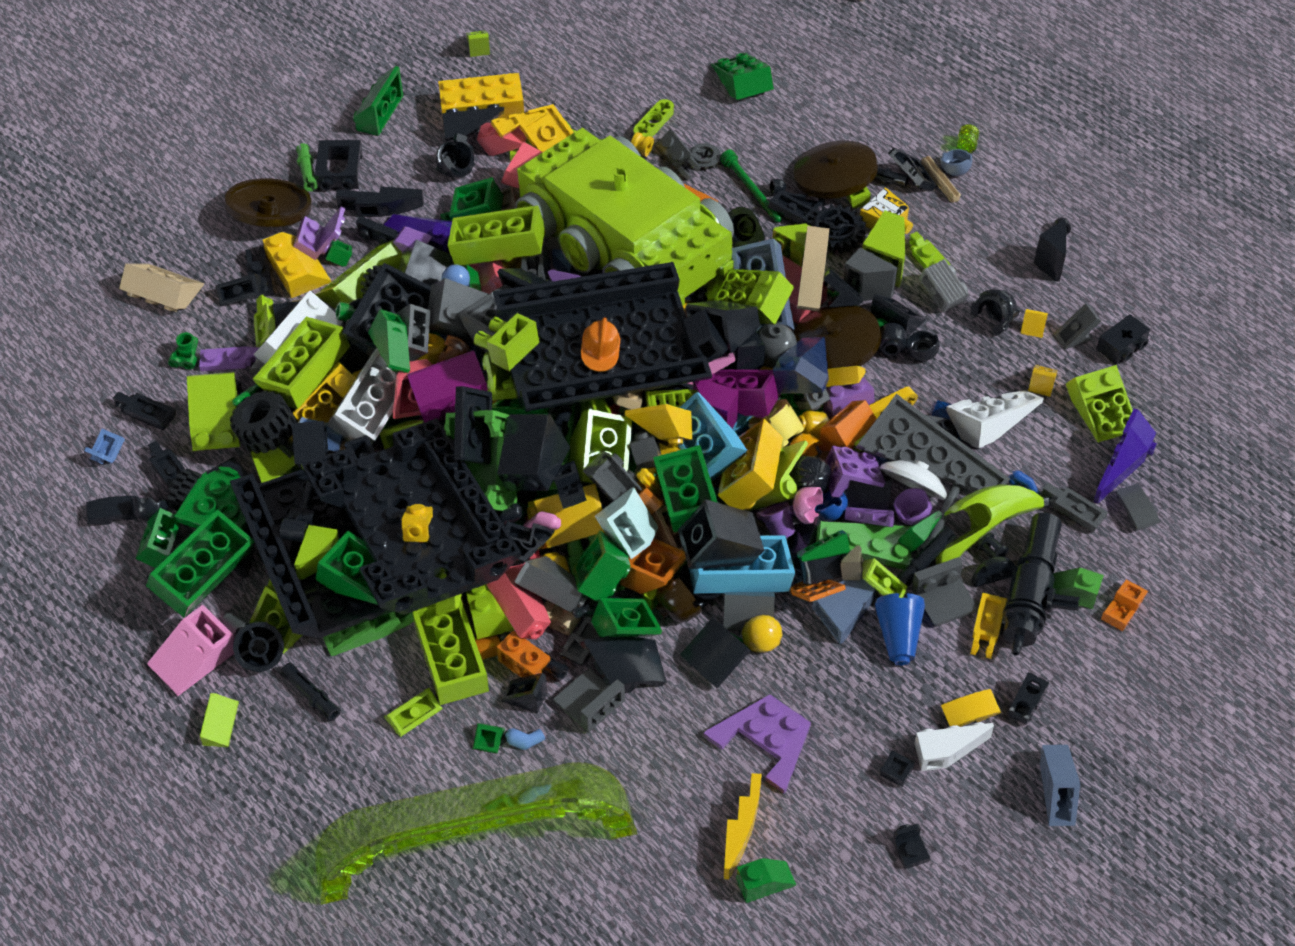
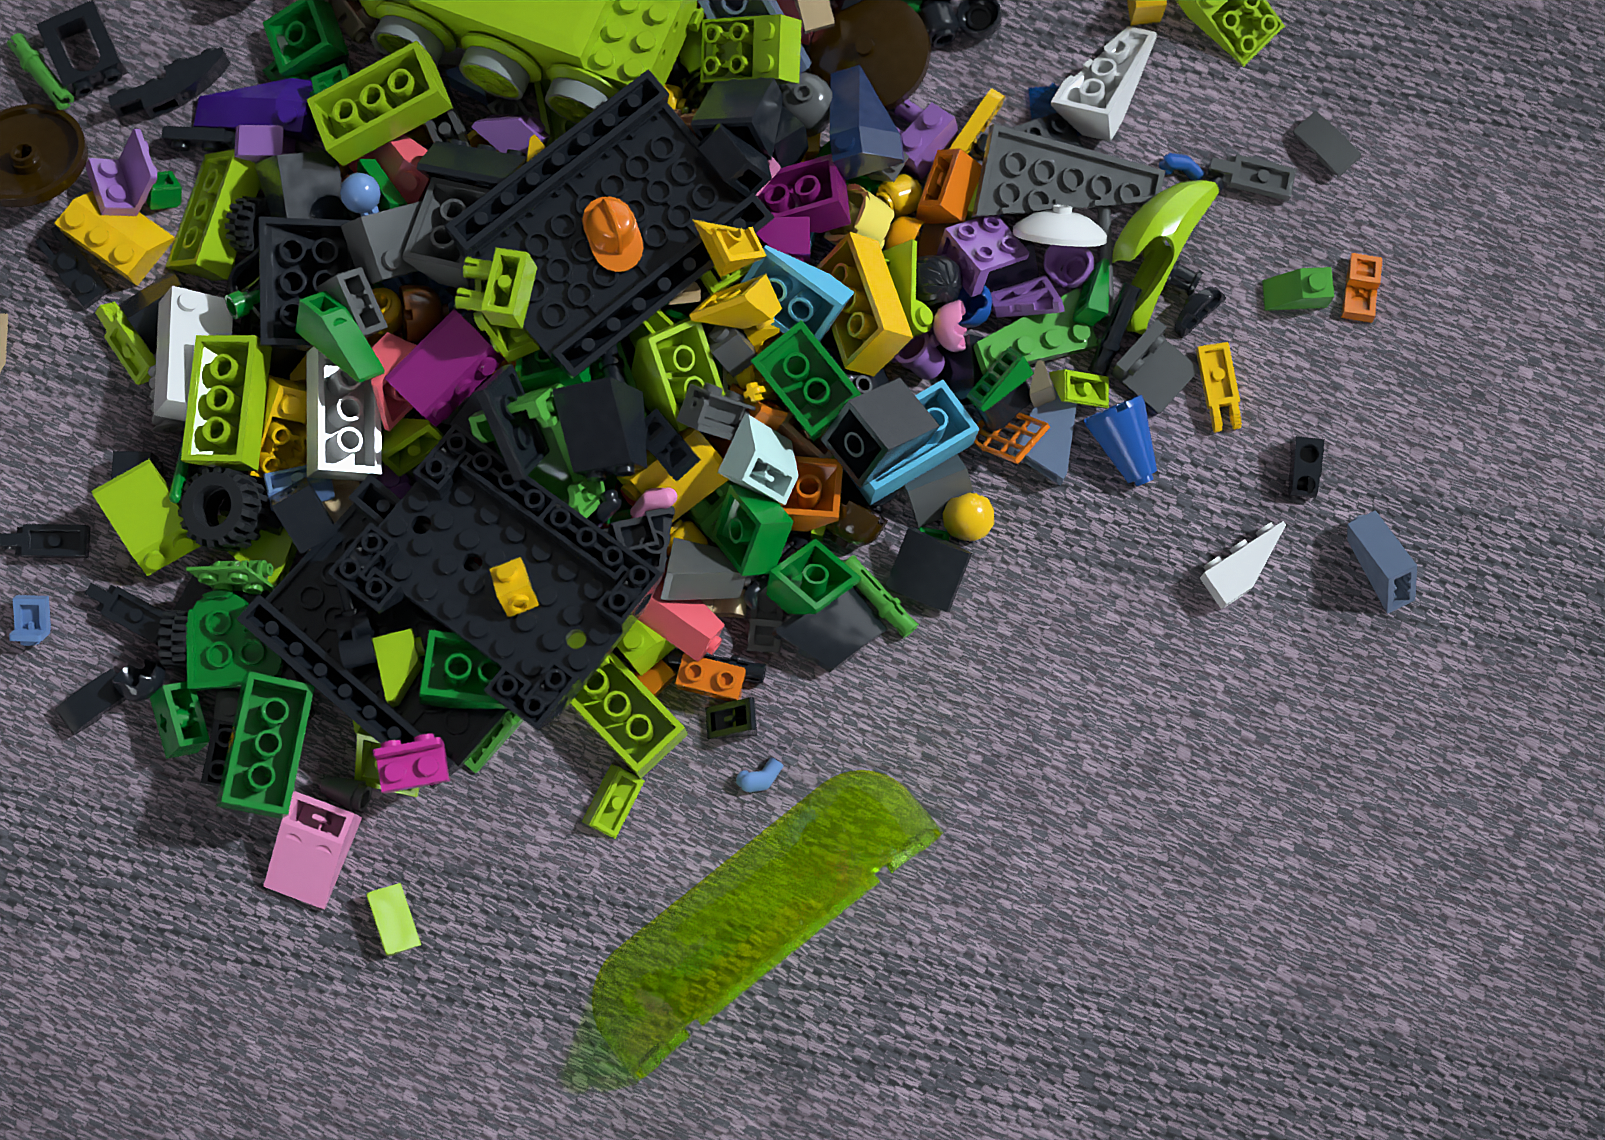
camera: 25 degrees left, 25 degrees up
(185, 351) = (50, 440): green plate -> none
(227, 358) = (109, 415): medium lavender hinge -> none
(239, 289) = (64, 308): black slope -> none
(244, 460) = (236, 576): none -> bright green hinge
(258, 646) = (390, 815): black cylinder -> none
(287, 606) = (411, 763): none -> dark pink bracket
(317, 698) = (478, 832): black pin -> none
(488, 737) = (718, 793): green slope -> none
(590, 699) = (809, 693): dark grey bracket -> none
(672, 379) = (730, 246): none -> yellow slope
(674, 667) = (882, 600): none -> bright green pin
(740, 830) = (1060, 787): yellow slope -> none
(763, 878) = (1113, 826): green slope -> none
(772, 728) = (1036, 633): medium lavender wing -> none
(845, 375) = (913, 113): yellow slope -> none
(897, 768) = (1196, 621): black plate -> none
(910, 846) = (1251, 712): black bracket -> none
(971, 708) = (1247, 508): yellow slope -> none
(1032, 585) = (1252, 310): piece -> none
(1128, 454) = (1290, 63): dark purple wedge -> none

